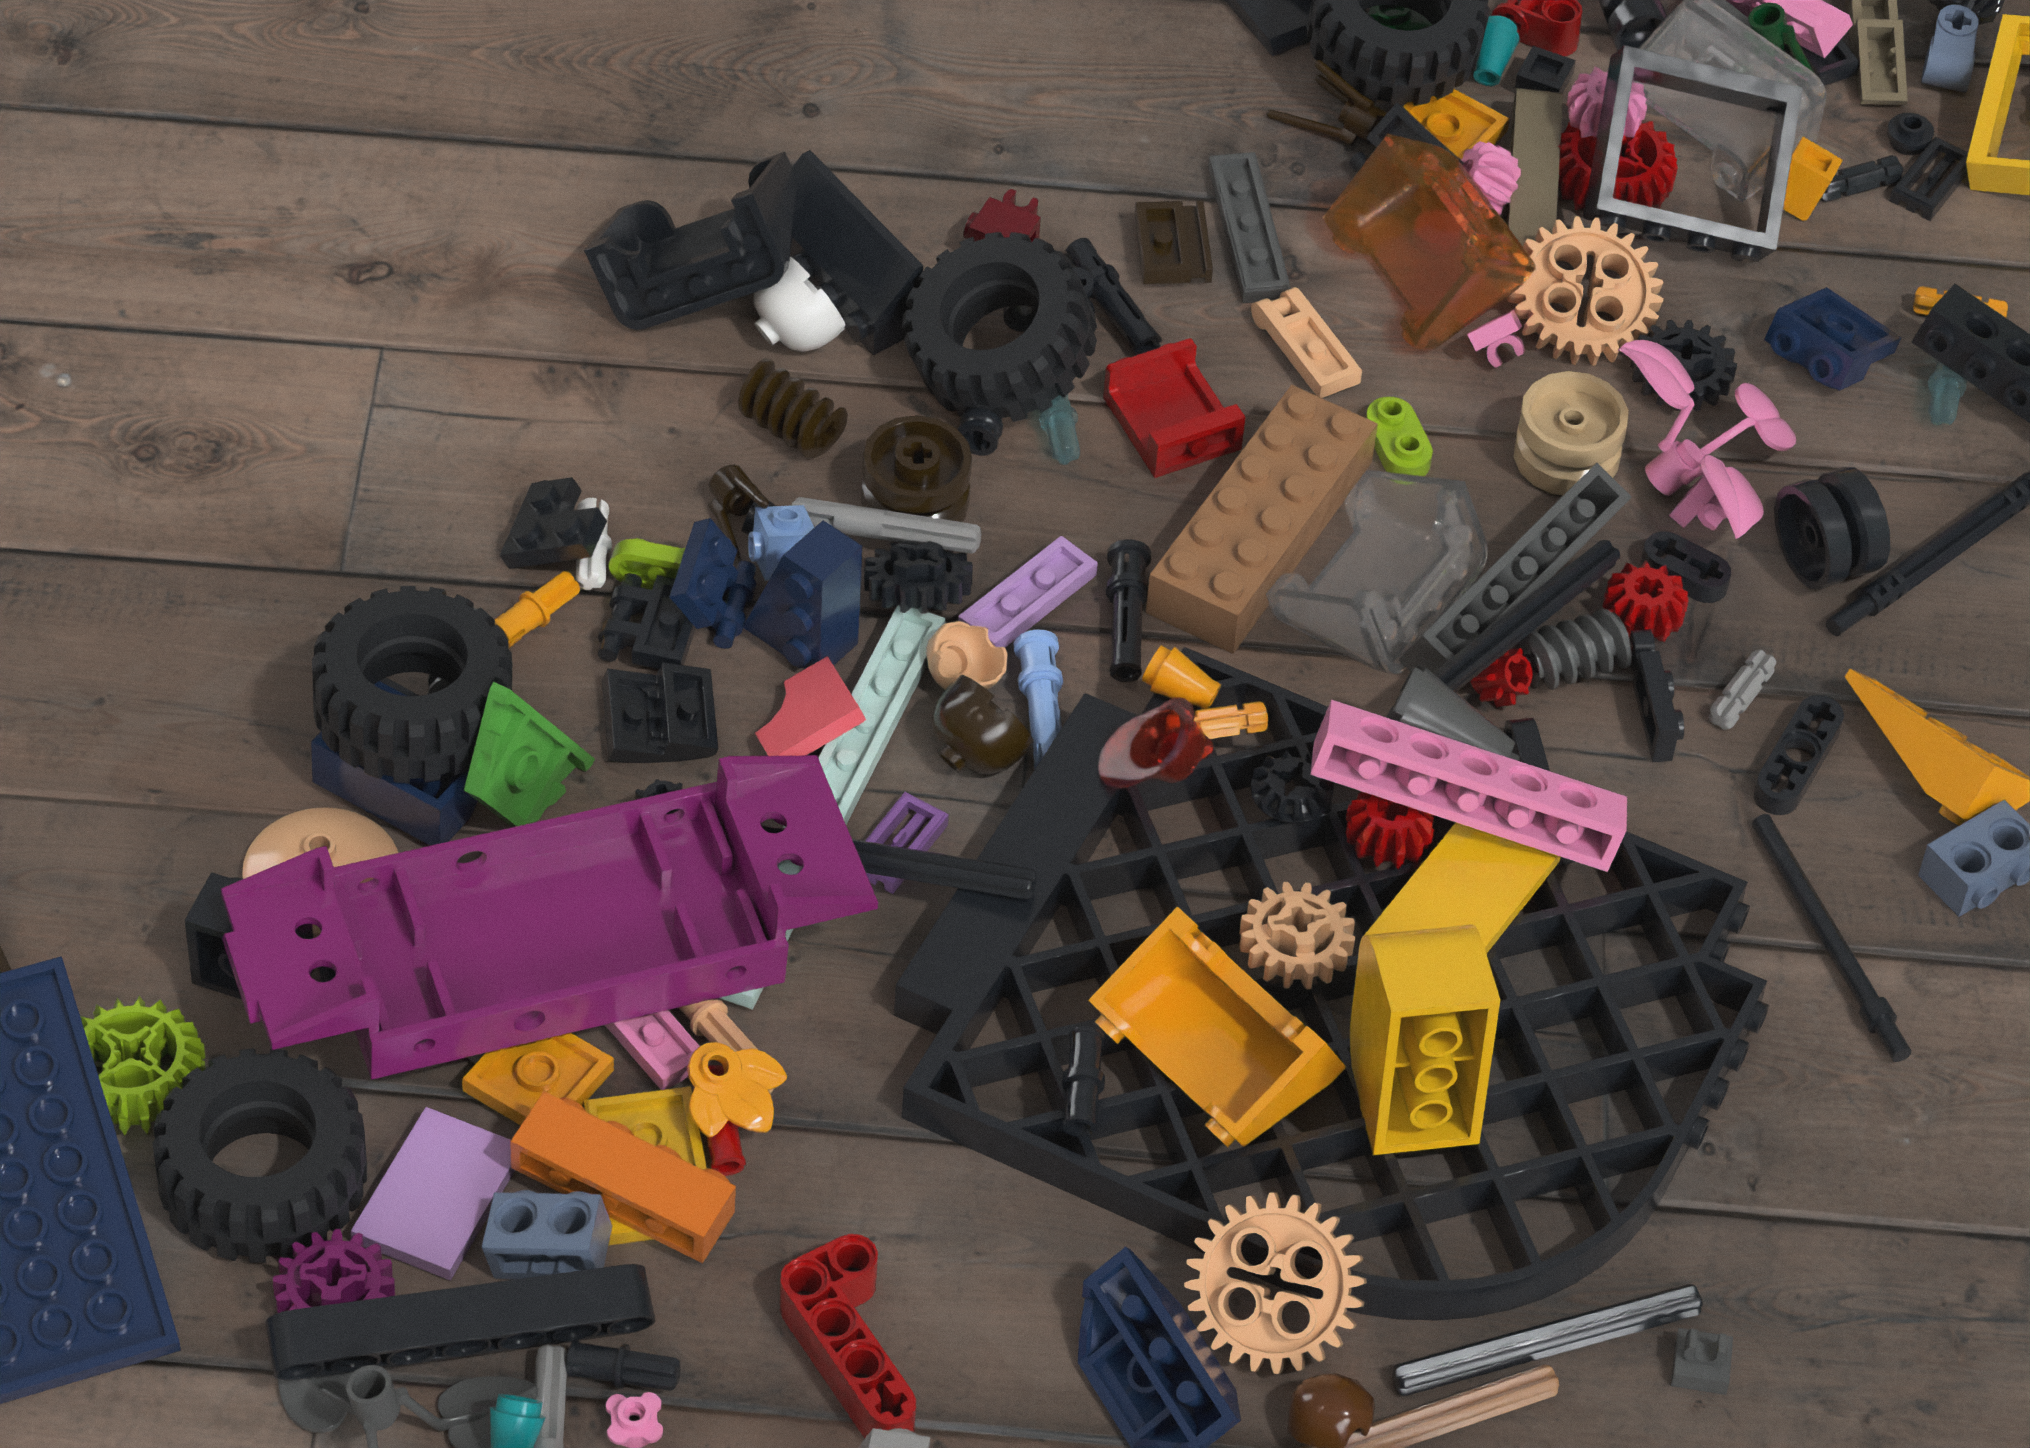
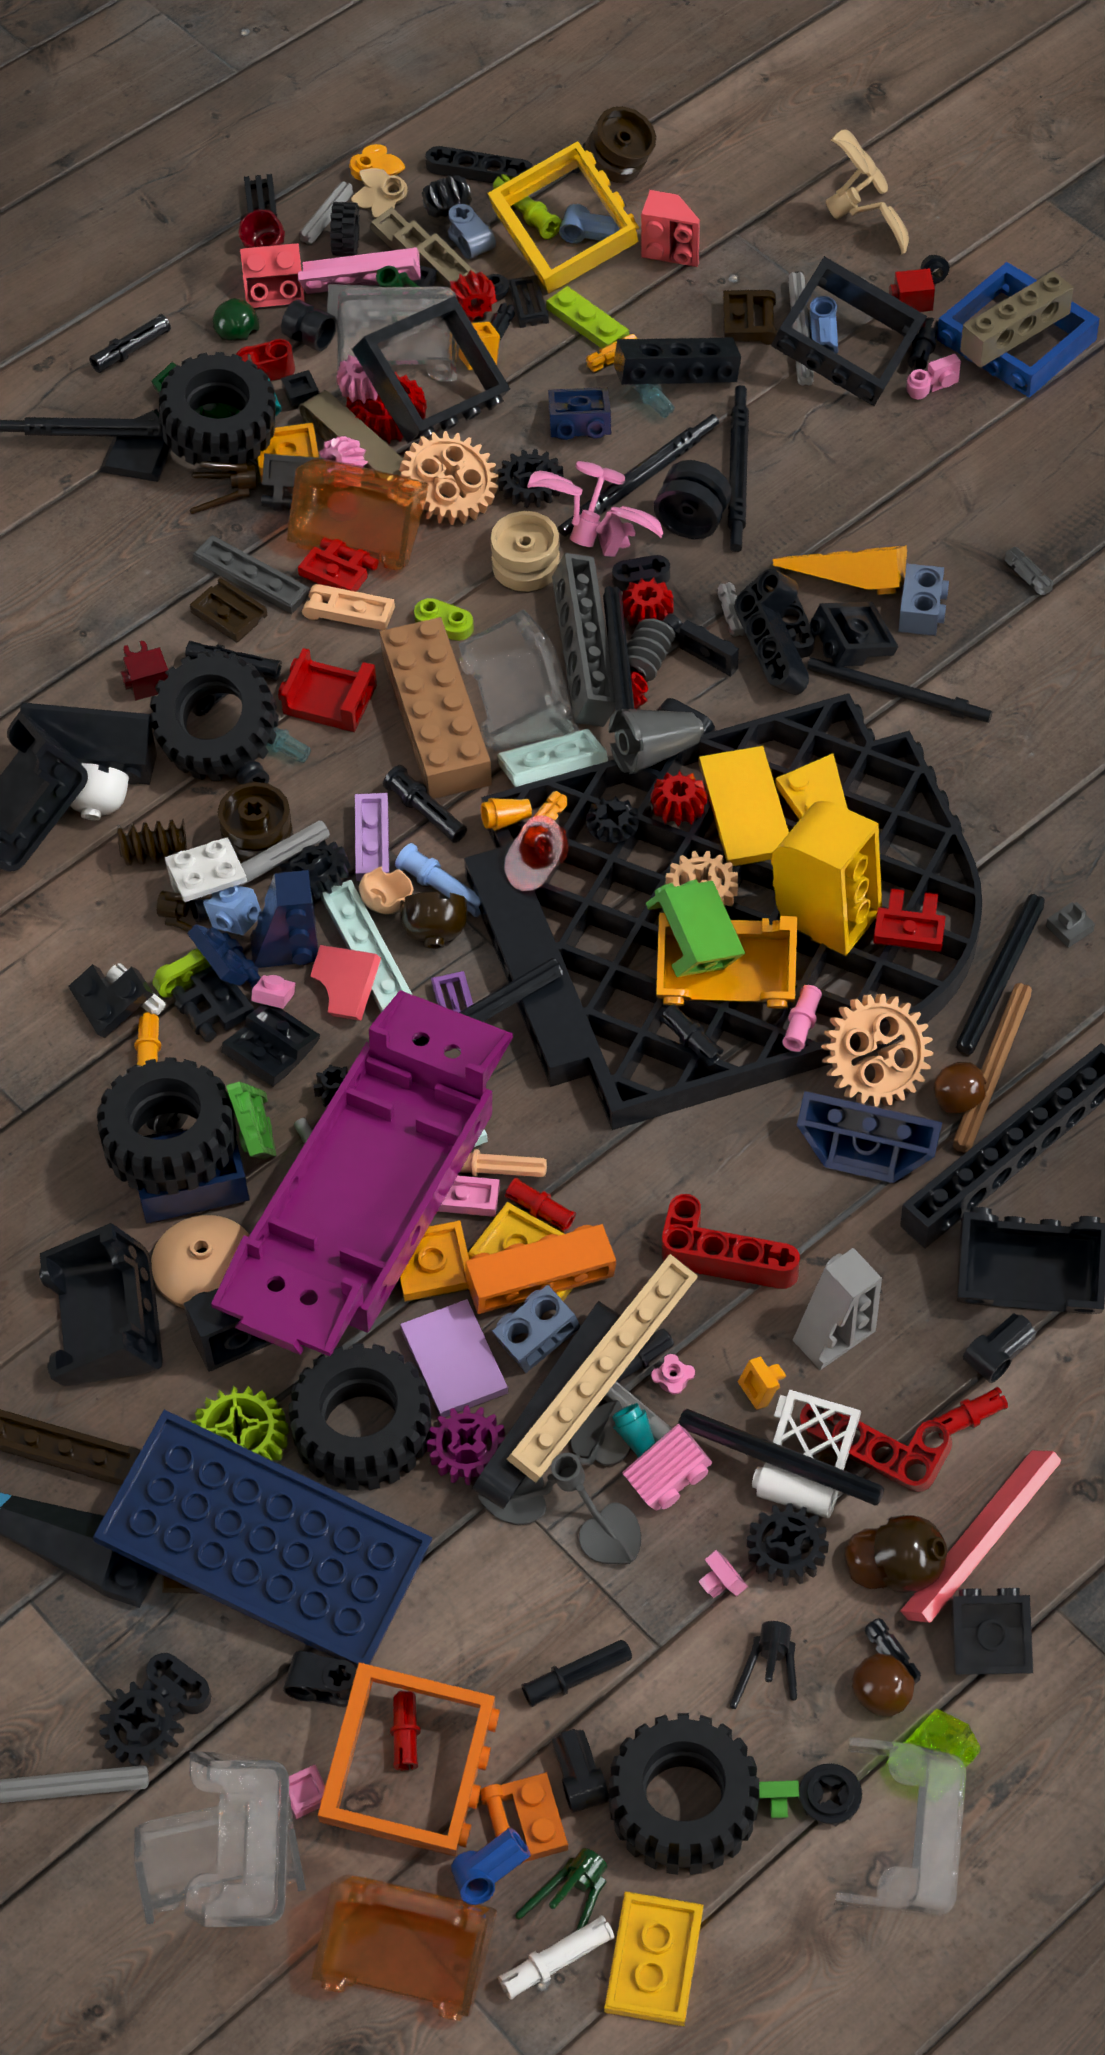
camera: 40 degrees left, 5 degrees up
(166, 835) = (104, 1307): none -> black windscreen
(549, 1329) = (602, 1368): none -> tan plate
(724, 663) = (273, 991): none -> bright pink plate
(738, 1094) = (540, 1185): light orange plate -> none
(798, 476) = (205, 869): none -> white bracket
(1210, 963) = (699, 926): none -> bright green panel
(1228, 1171) = (802, 1018): none -> bright pink pin
(1319, 671) = (552, 757): none -> light aqua tile
(1337, 292) = (331, 570): none -> red plate
(1469, 785) = (701, 748): bright pink brick -> none
(1474, 1185) = (910, 928): none -> red plate
(1495, 333) = (431, 531): bright pink tile -> none
(1552, 965) = (811, 784): none -> yellow wing
(1744, 743) = (760, 617): none -> black beam
(1822, 459) = (646, 469): none -> black axle
(1848, 825) = (852, 632): none -> black plate
(1859, 118) = (474, 294): none -> red gear
(1978, 244) = (585, 317): none -> lime plate

